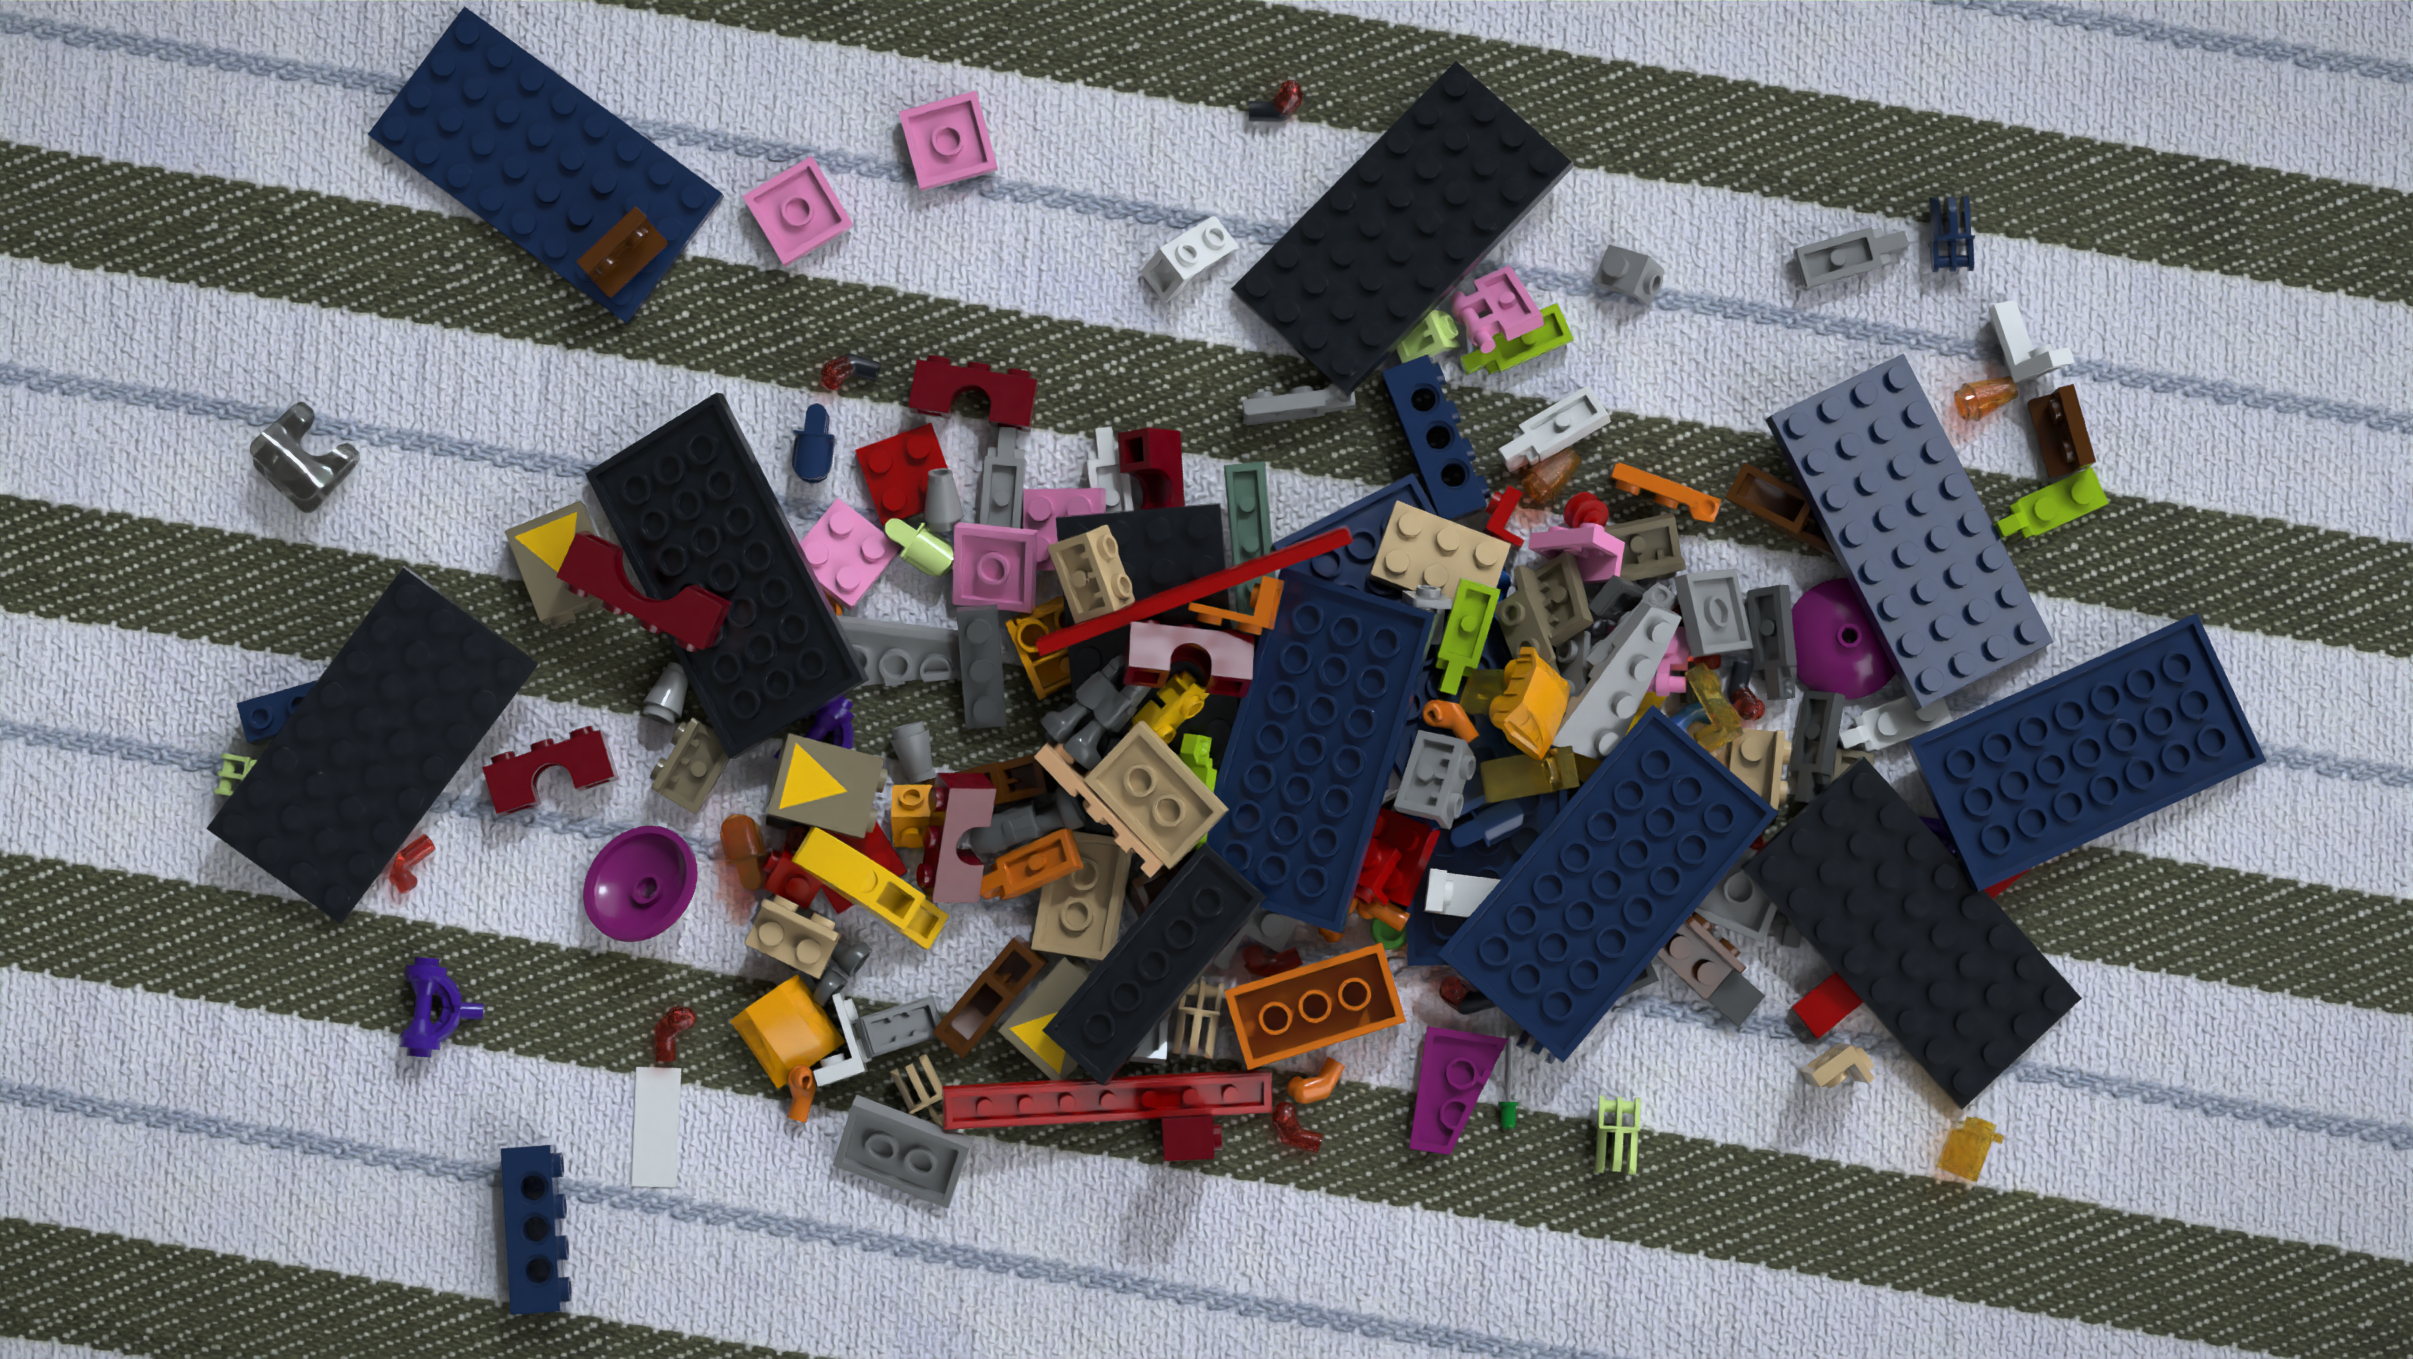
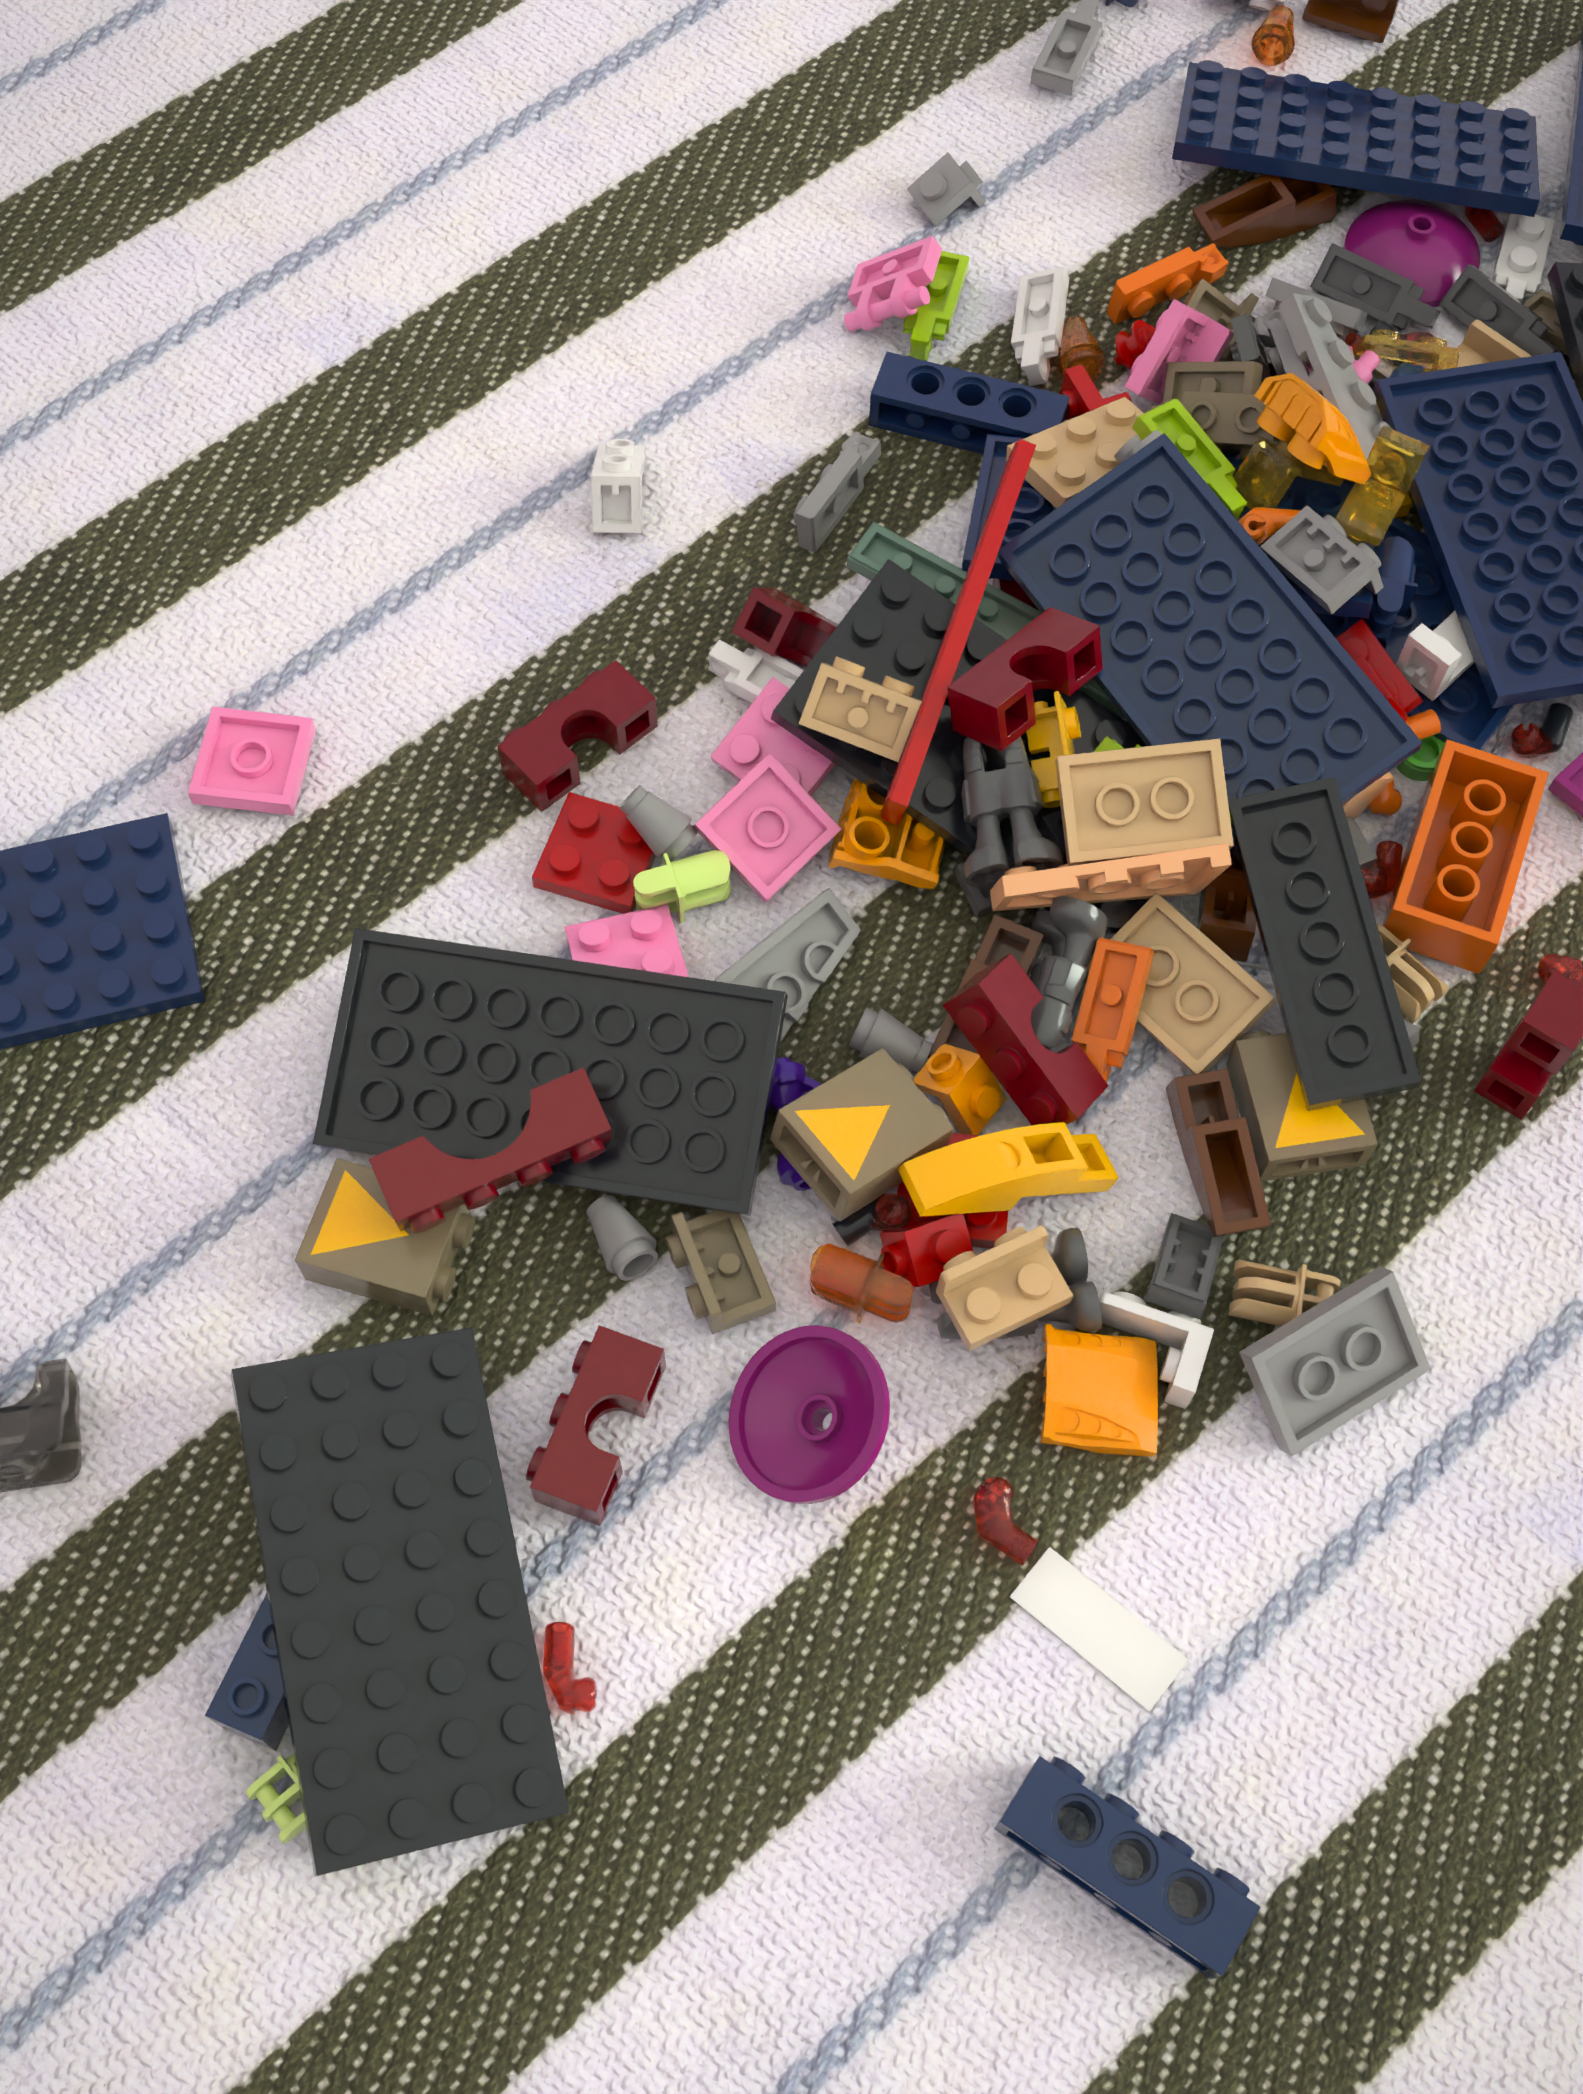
camera: 55 degrees left, 20 degrees down
(421, 1034) = (719, 1756): dark purple piece -> none
(622, 252) = (127, 924): reddish brown bracket -> none
(802, 1088) = (1171, 1417): orange arm -> none
(814, 446) = (492, 907): dark blue arm -> none
(845, 366) = (444, 826): arm -> none
(948, 140) = (317, 593): bright pink plate -> none
(981, 666) = (857, 909): dark grey plate -> none
(1003, 482) = (682, 767): light grey hinge -> none
(1118, 1101) = (1420, 1118): red tile -> none
(1265, 600) = (1035, 586): orange bracket -> none
(1281, 105) = (552, 334): arm -> none
(1317, 1087) = (1545, 918): orange arm -> none
(1402, 228) = (752, 314): black plate -> none
(1430, 337) = (862, 357): yellowish green bracket -> none
(2054, 505) = (1410, 49): lime hinge -> none

